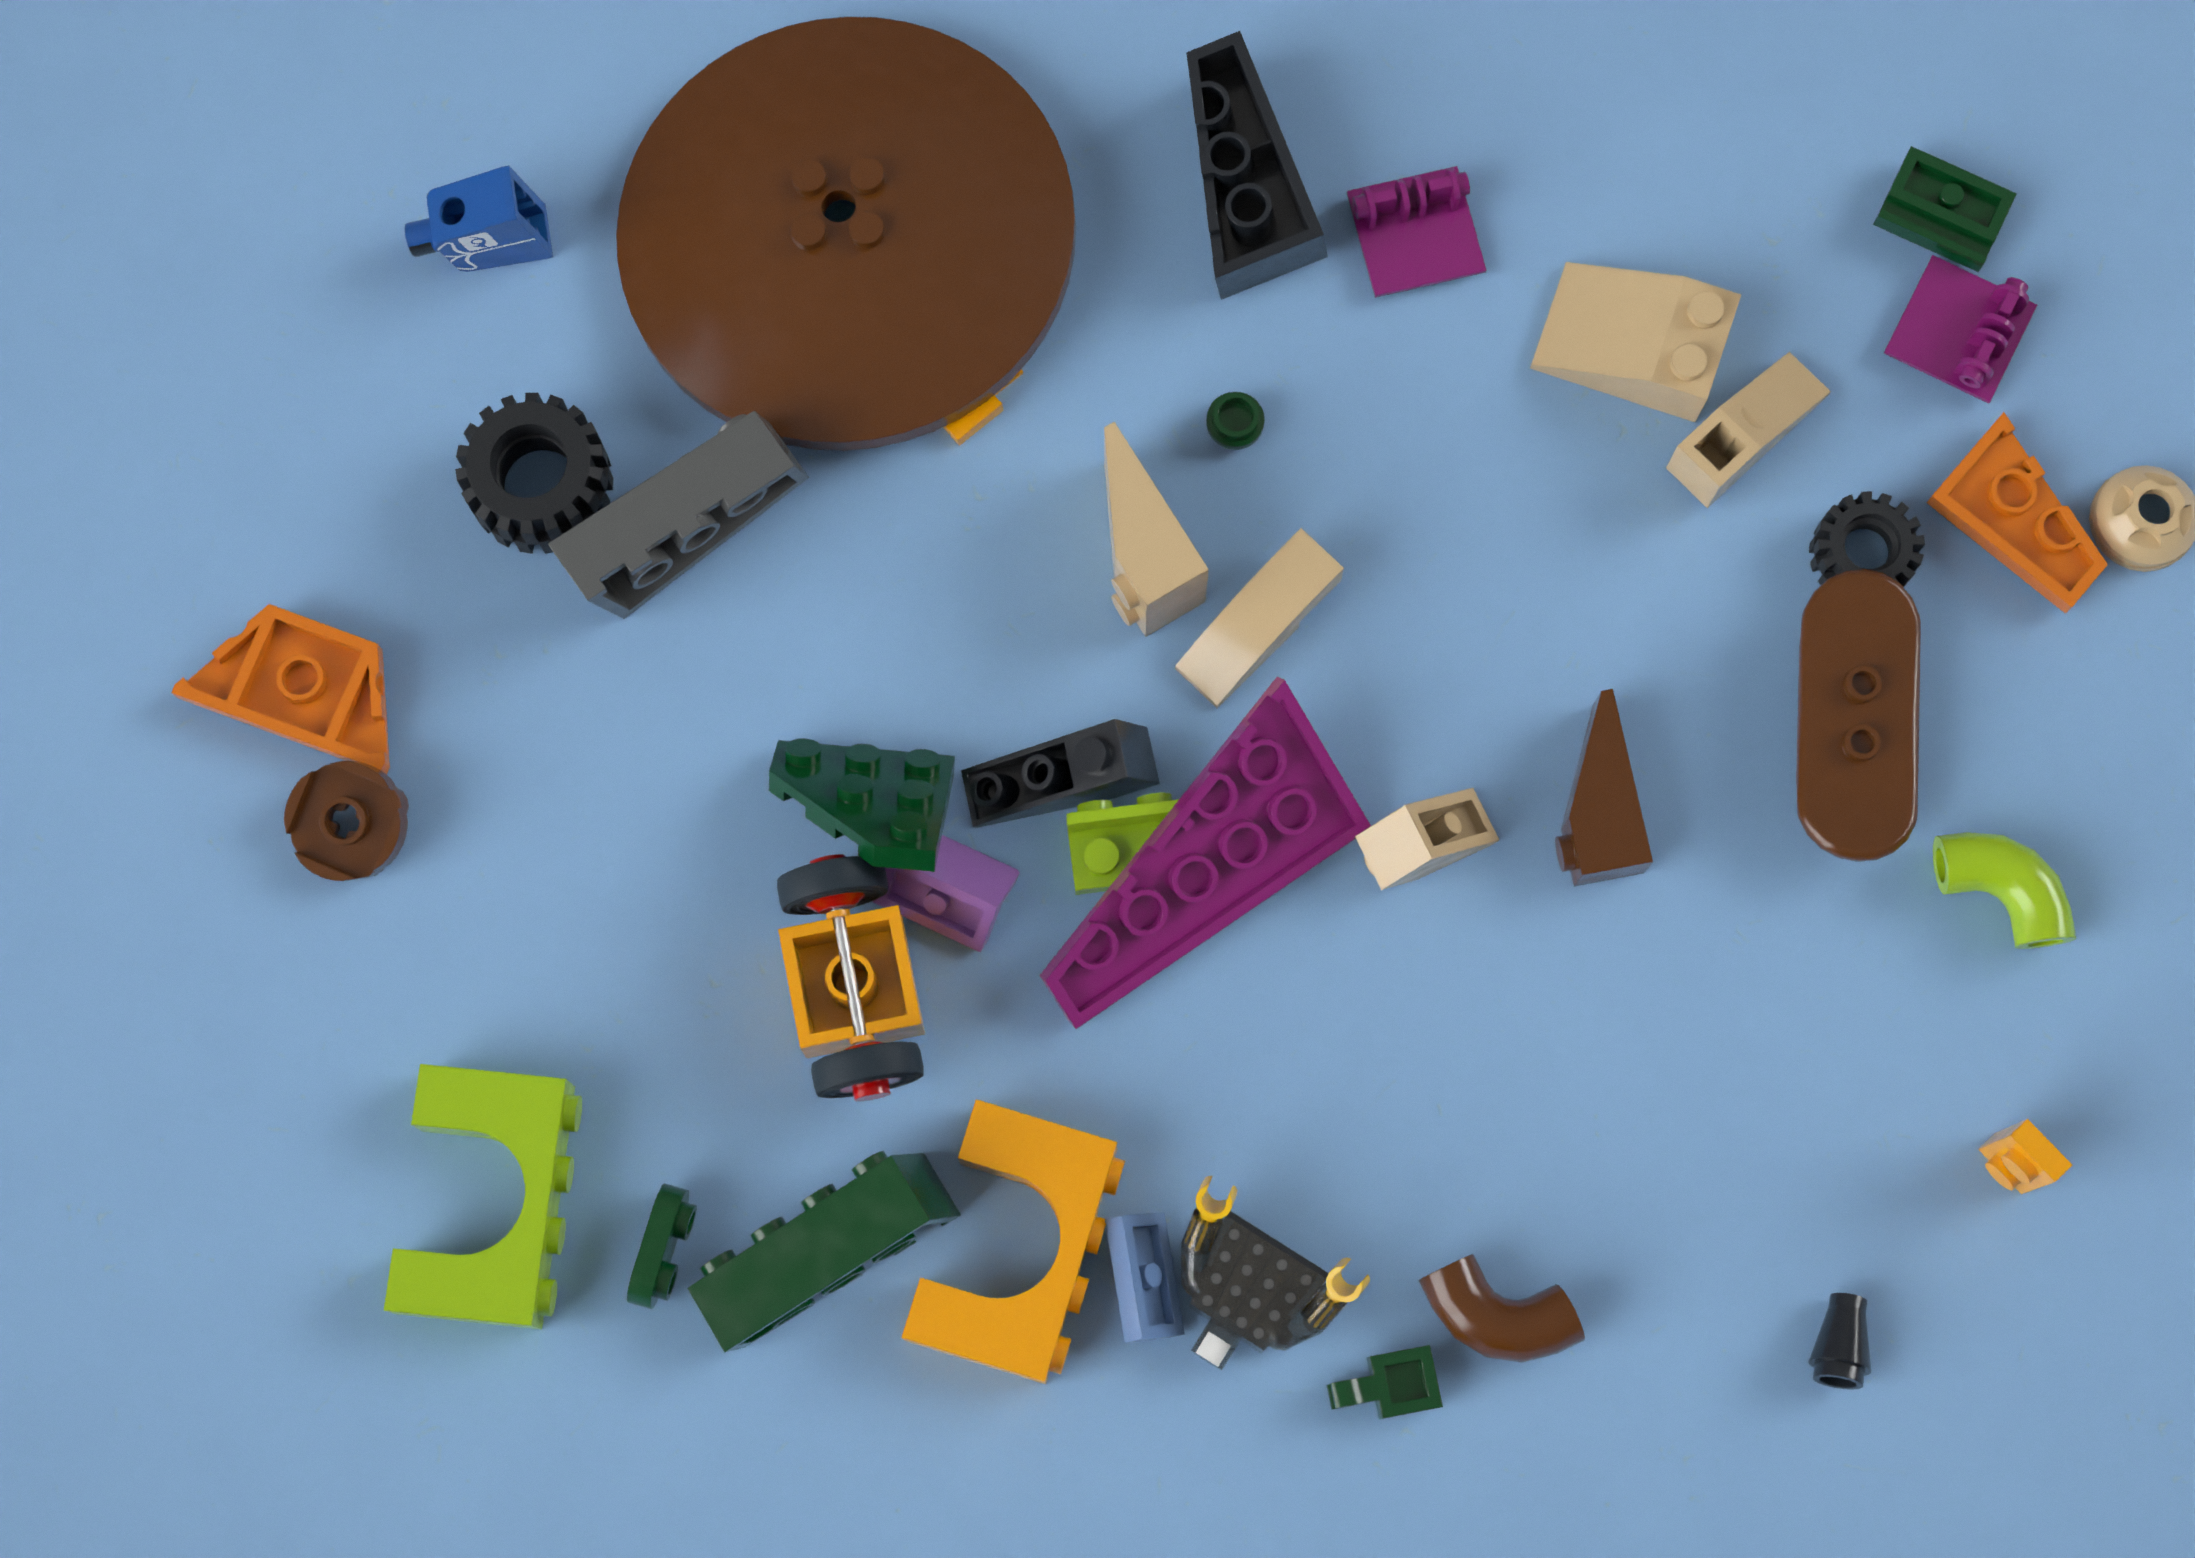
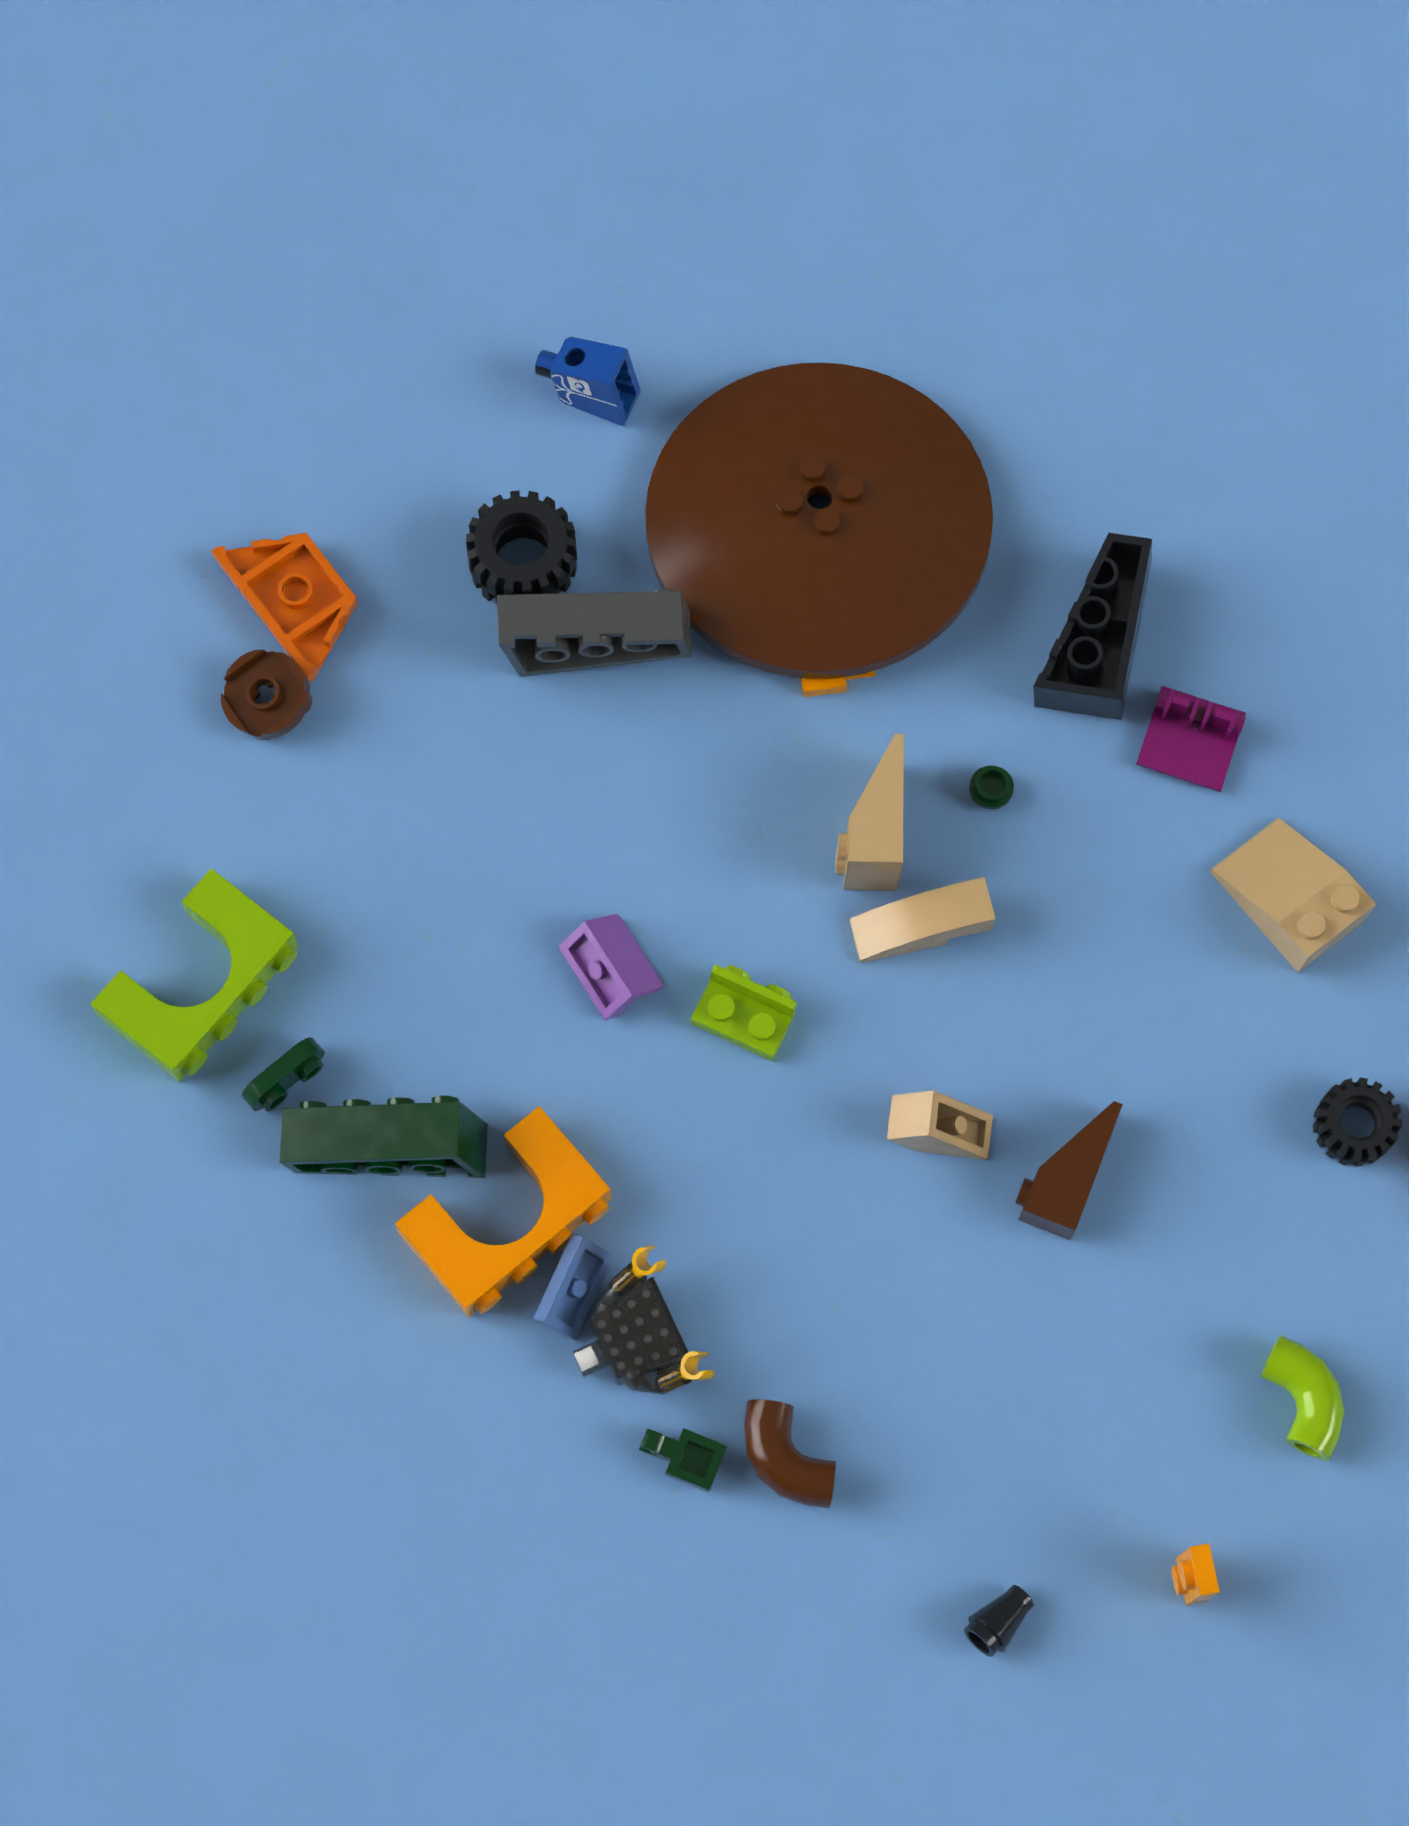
camera: 30 degrees right, 5 degrees down
(850, 980) = (510, 981): brick -> none
(874, 796) = (600, 882): dark green plate -> none
(1061, 773) = (725, 938): black slope -> none
(1233, 839) = (813, 1047): magenta wing -> none
(1745, 428) = (1326, 994): tan slope -> none
(1858, 716) = (1277, 1223): reddish brown piece -> none

